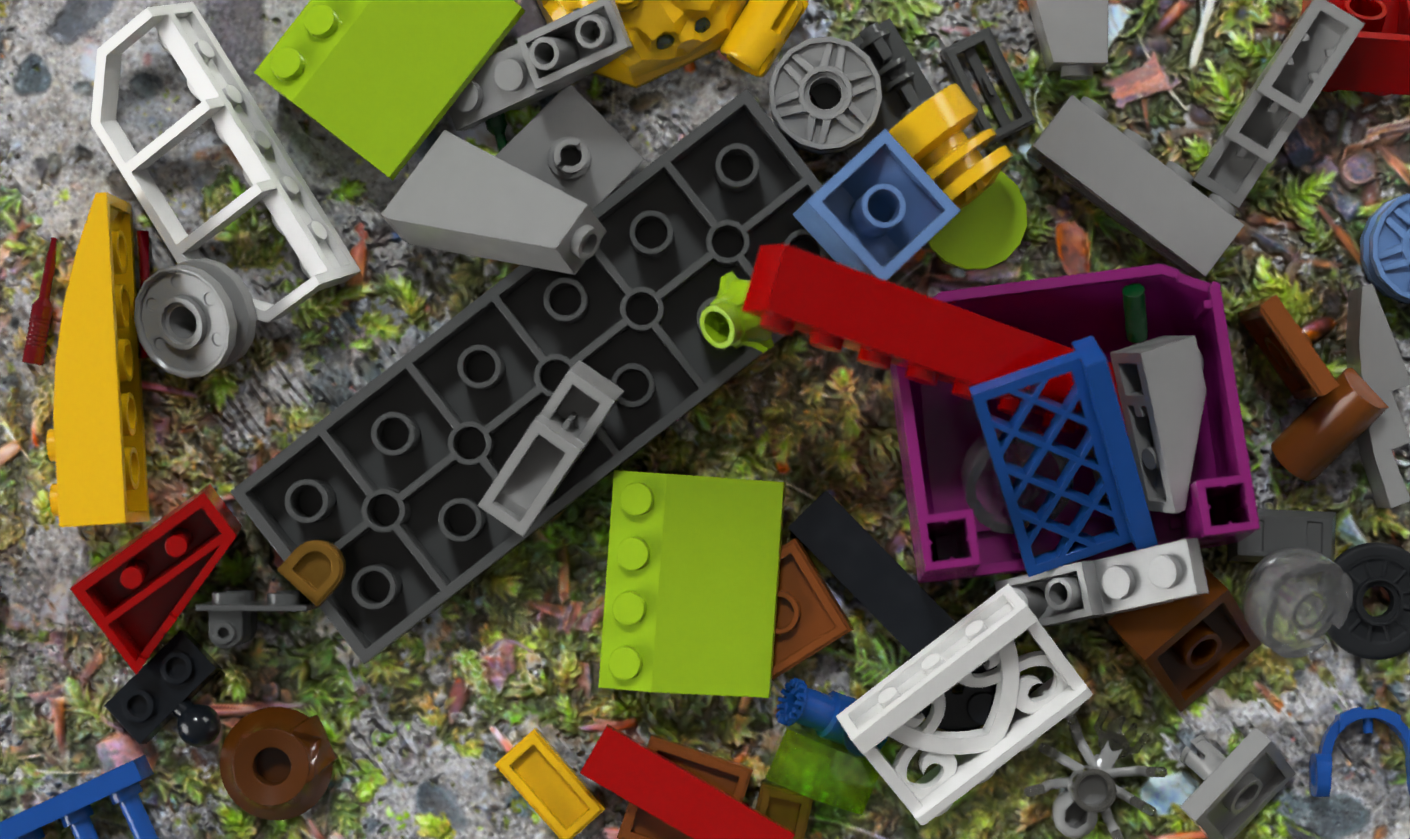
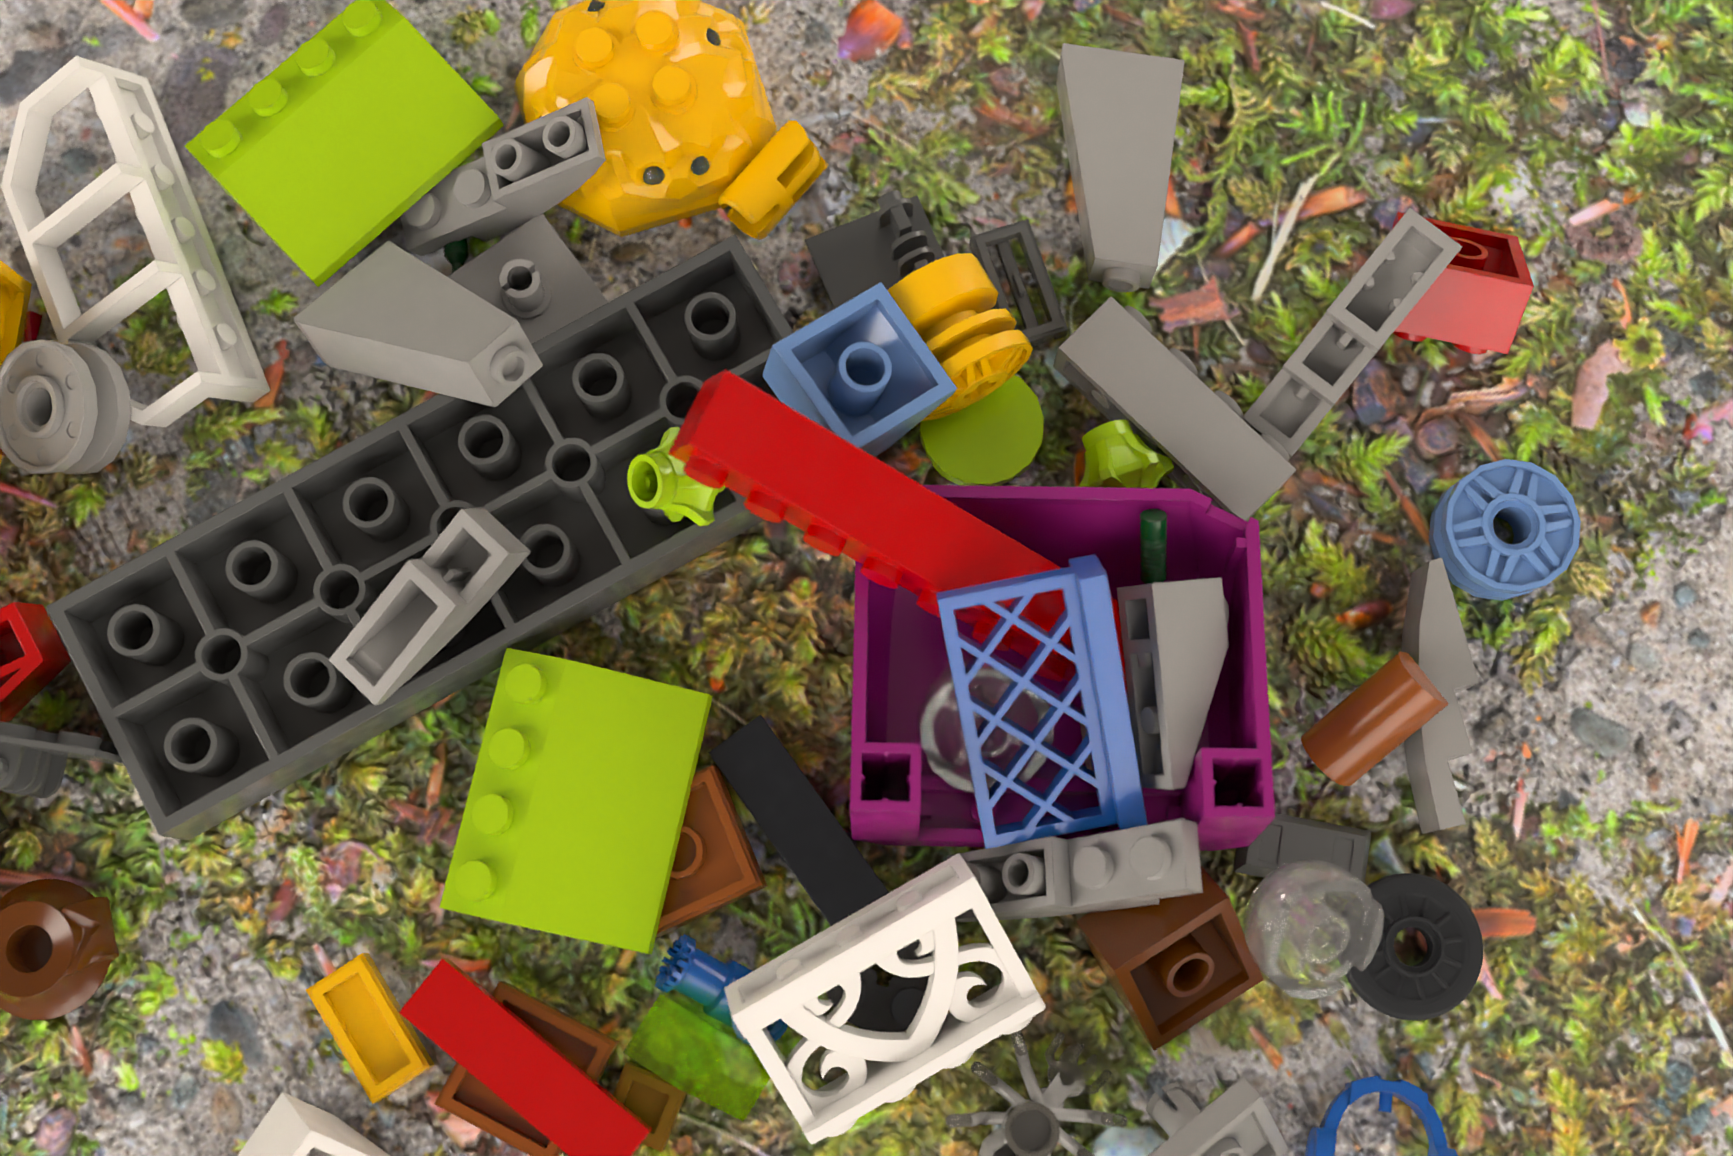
camera: 10 degrees right, 10 degrees down
(315, 569) = (122, 711): pearl gold tile -> none
(817, 63) = (819, 227): light grey wheel -> none
(1096, 240) = (1121, 458): none -> lime rock
(1287, 348) = (1332, 619): dark orange plate -> none

